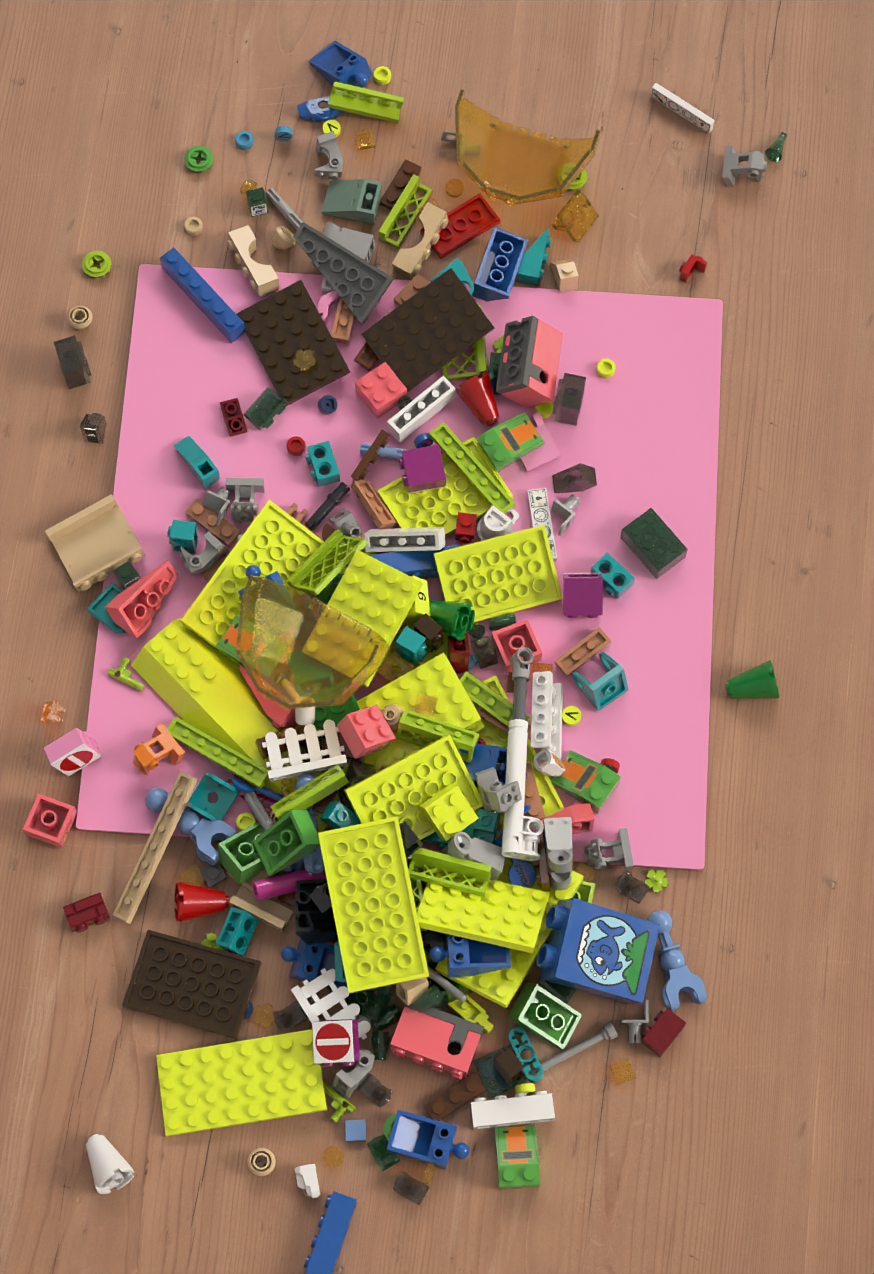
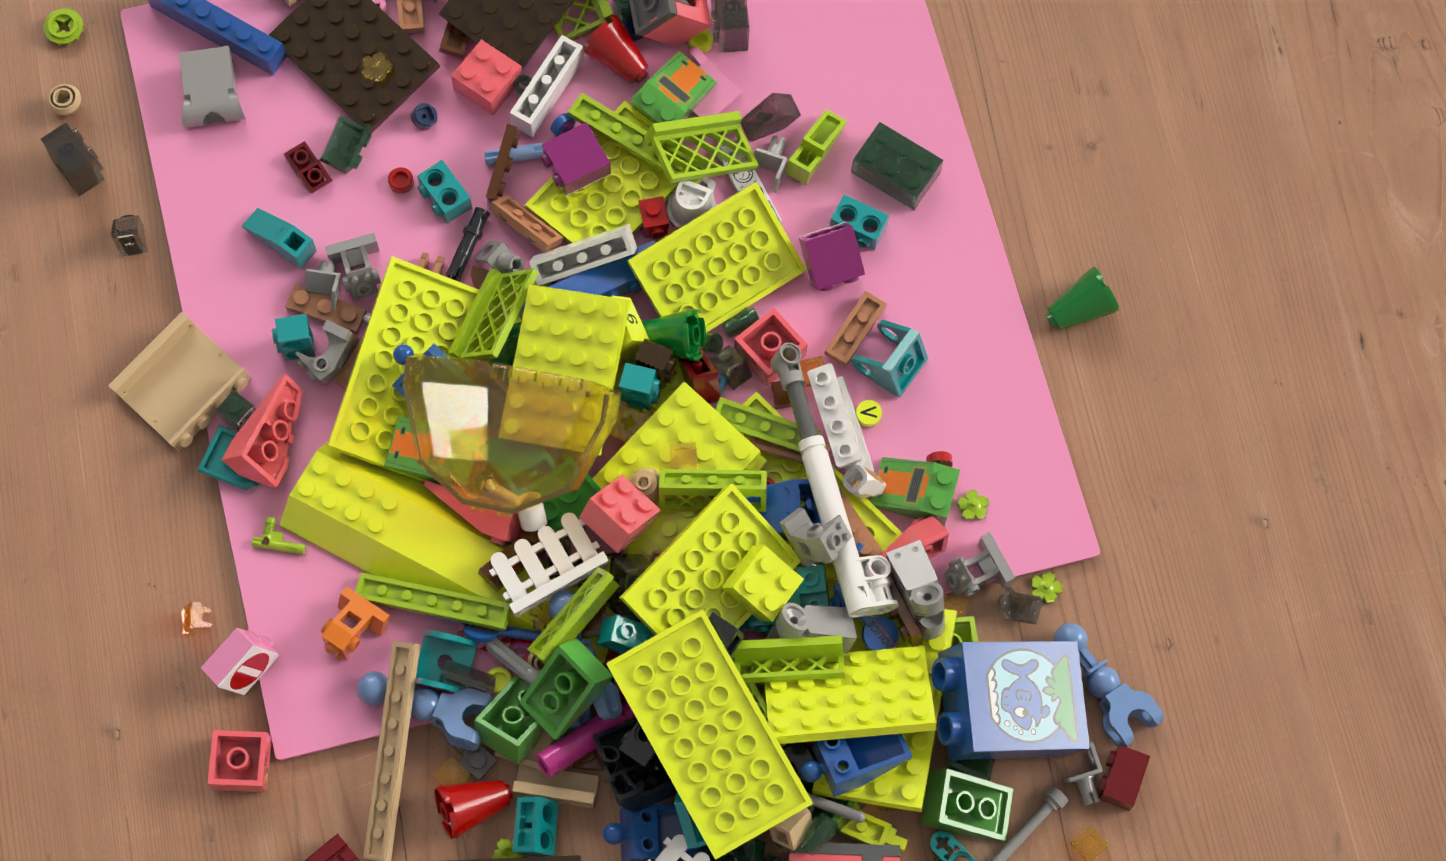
camera: 20 degrees left, 0 degrees up
(183, 339) = (209, 87): none -> light grey piece
(224, 812) = (467, 677): none -> clear smoke slope
(512, 473) = (692, 129): none -> lime fence
(600, 511) = (815, 147): none -> lime slope
(623, 805) = (973, 505): none -> lime plant

